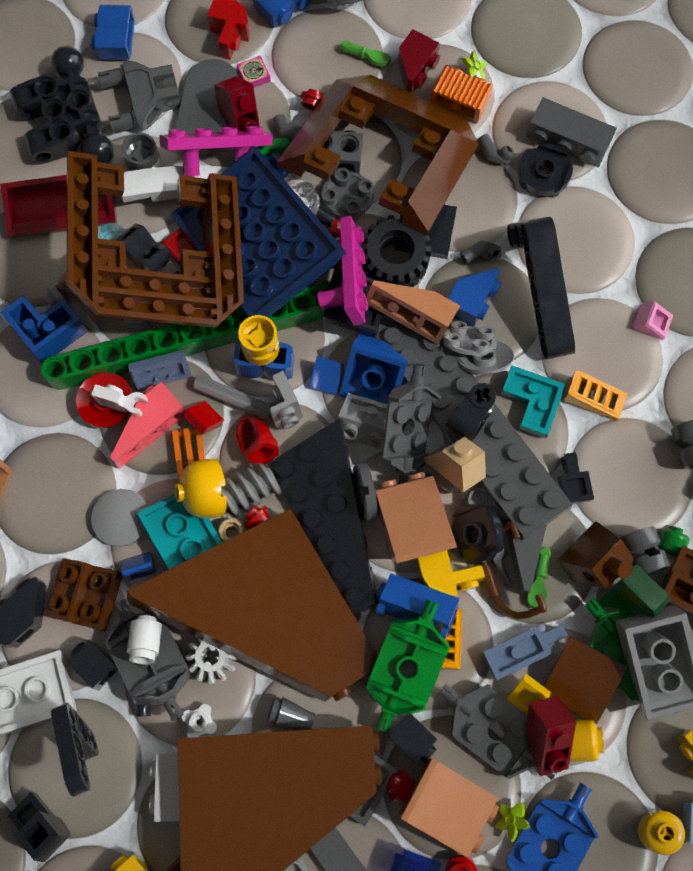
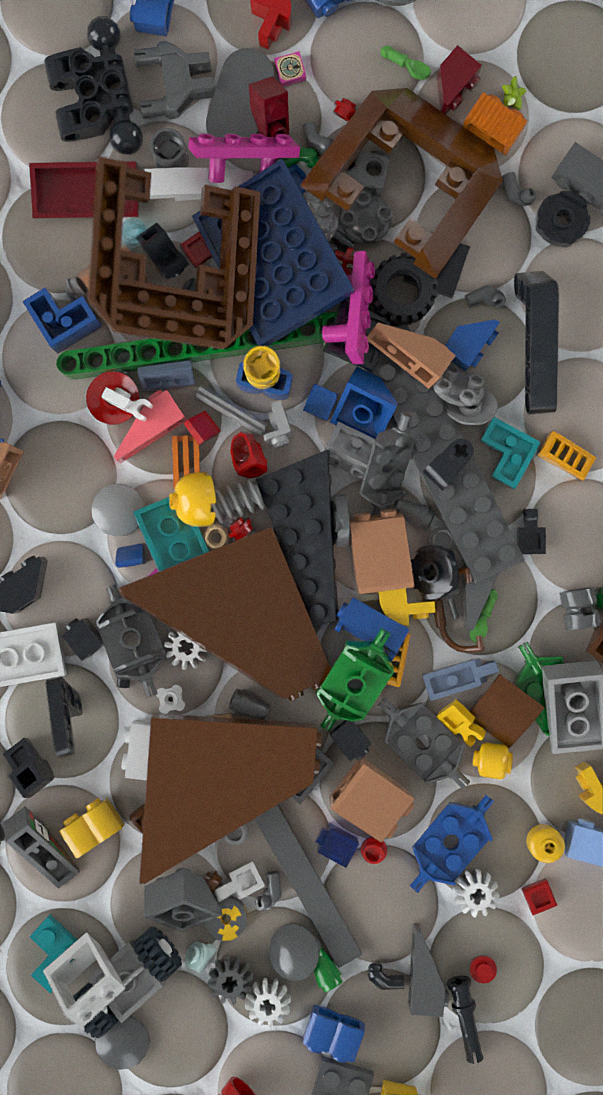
camera: 10 degrees right, 15 degrees up
(83, 594) = (80, 575): reddish brown slope -> none
(144, 640) = (130, 628): white brick -> none
(400, 786) = (334, 777): red plate -> none
(459, 463) = (428, 506): tan slope -> none
(512, 820) = (423, 815): lime plant -> none
(550, 734) = (467, 755): dark red slope -> none
(597, 558) = (538, 609): reddish brown torso -> none
(636, 594) = (565, 646): dark green slope -> none

